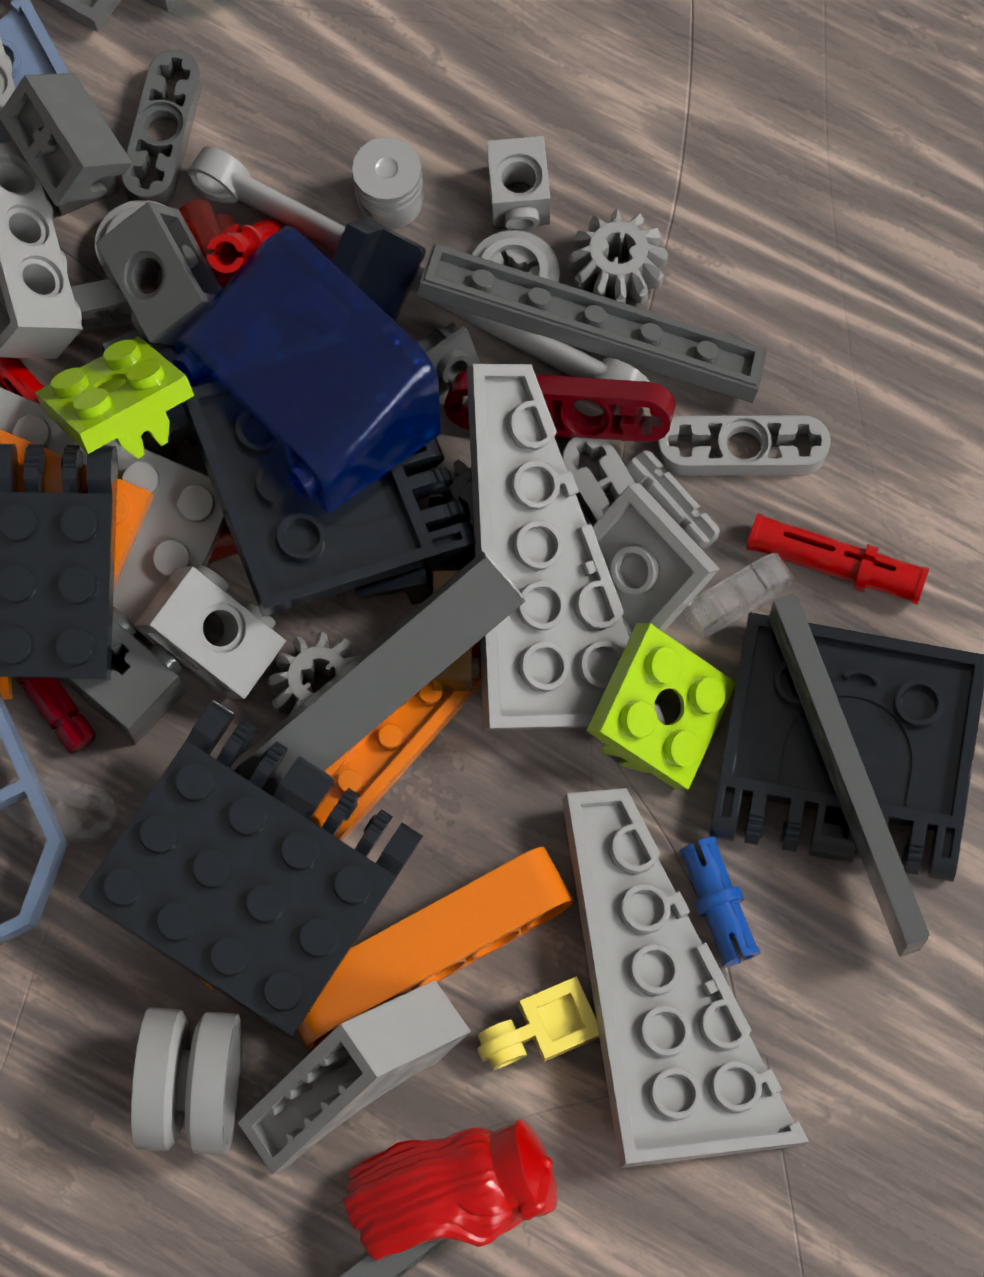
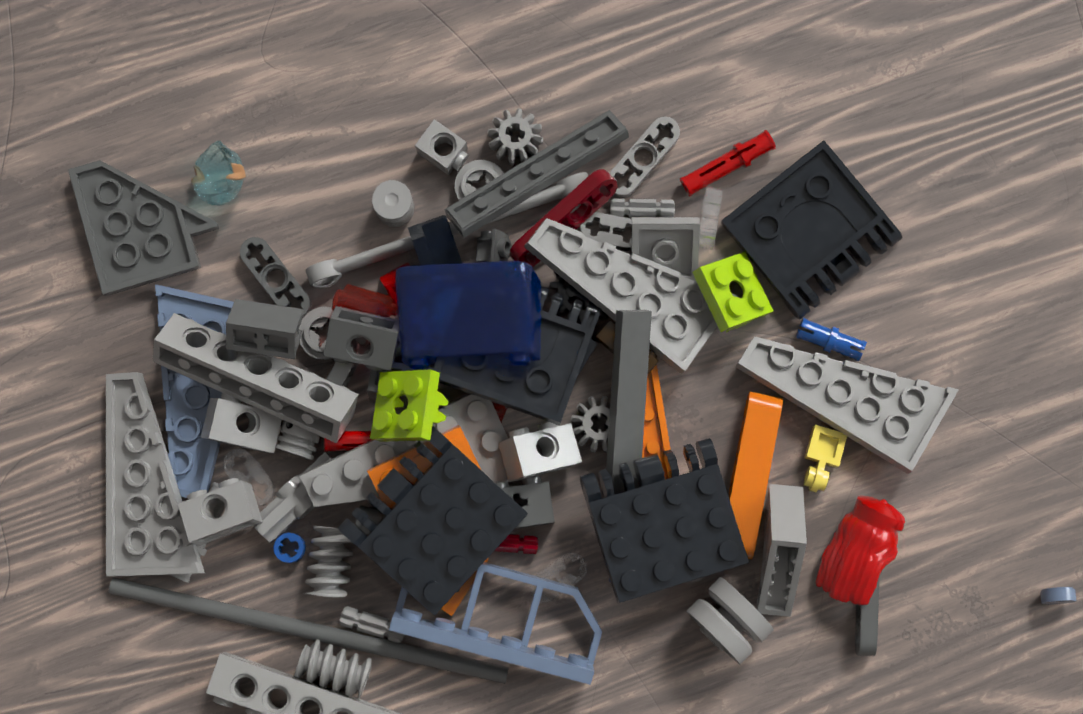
camera: 50 degrees left, 10 degrees up
(236, 245) = (378, 284): red pin -> none
(848, 775) = (829, 242): dark grey tile -> none

